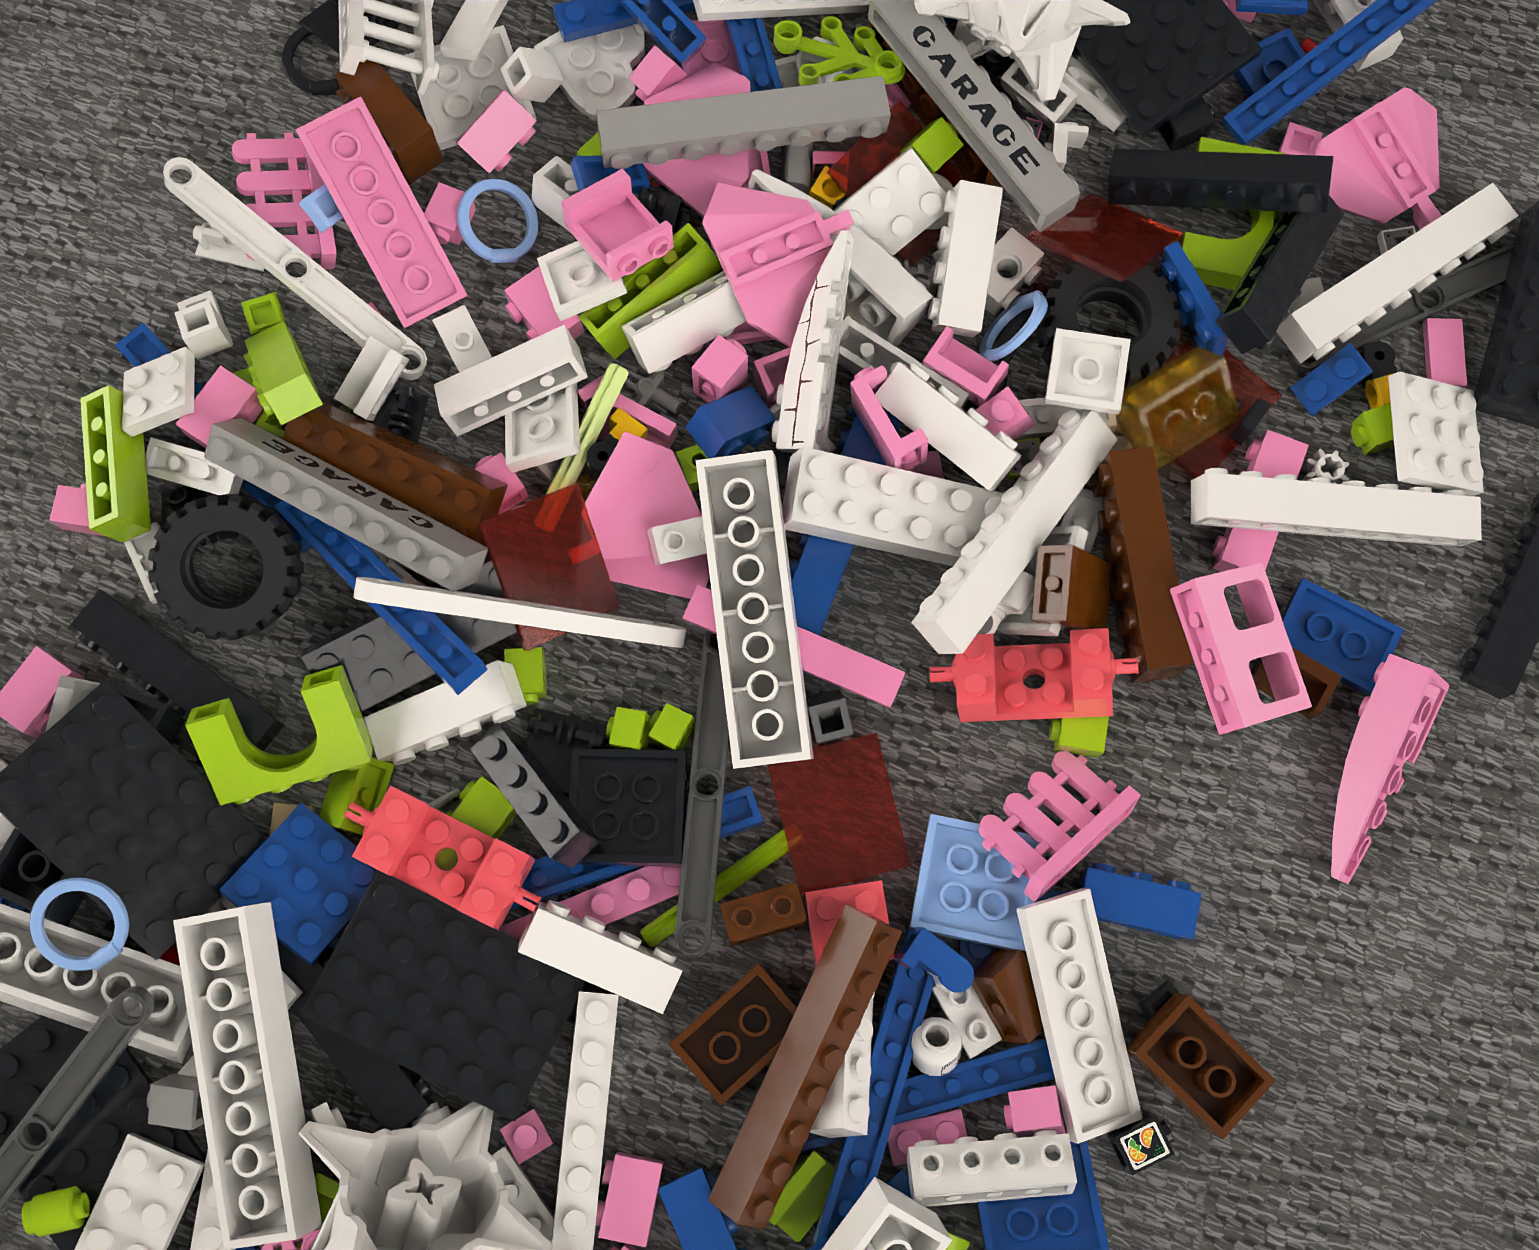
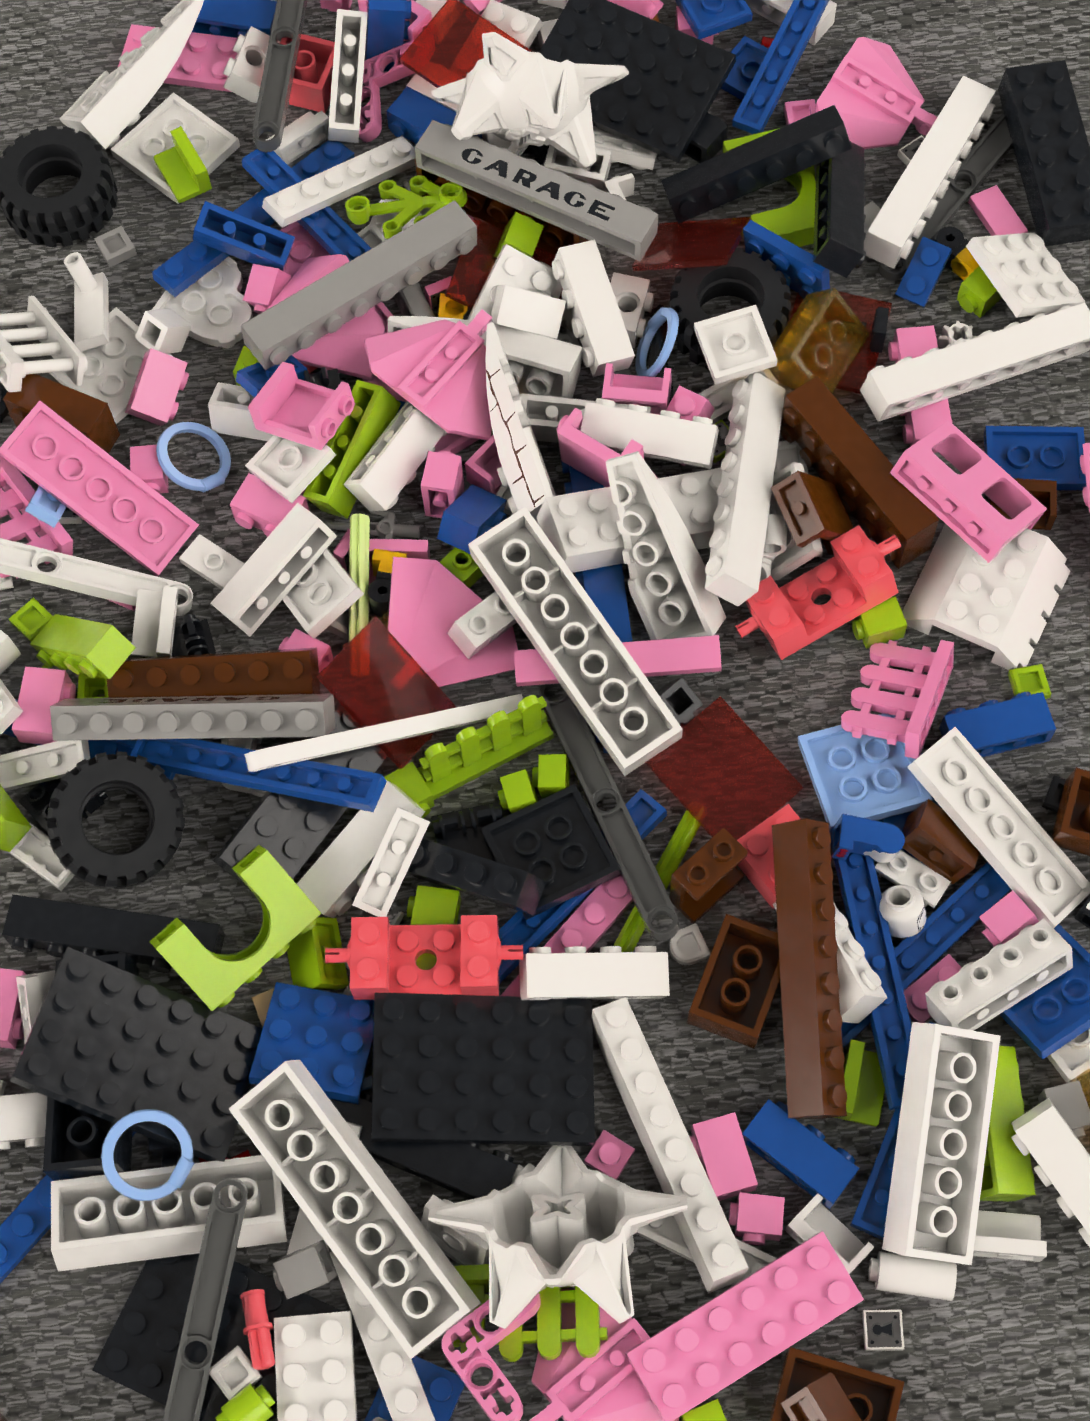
camera: 20 degrees left, 10 degrees down
(68, 1166) = (234, 1372): none -> white tile
(108, 1138) = (258, 1329): none -> coral axle
(461, 745) = (391, 863): none -> white piece
(621, 669) = (485, 748): none -> lime fence
(713, 967) = (688, 946): none -> white tile
(887, 564) = (660, 556): none -> white wedge
(898, 230) = (527, 311): none -> white panel
(1197, 870) = (1029, 679): none -> lime tile
(1202, 775) = (992, 601): none -> white slope

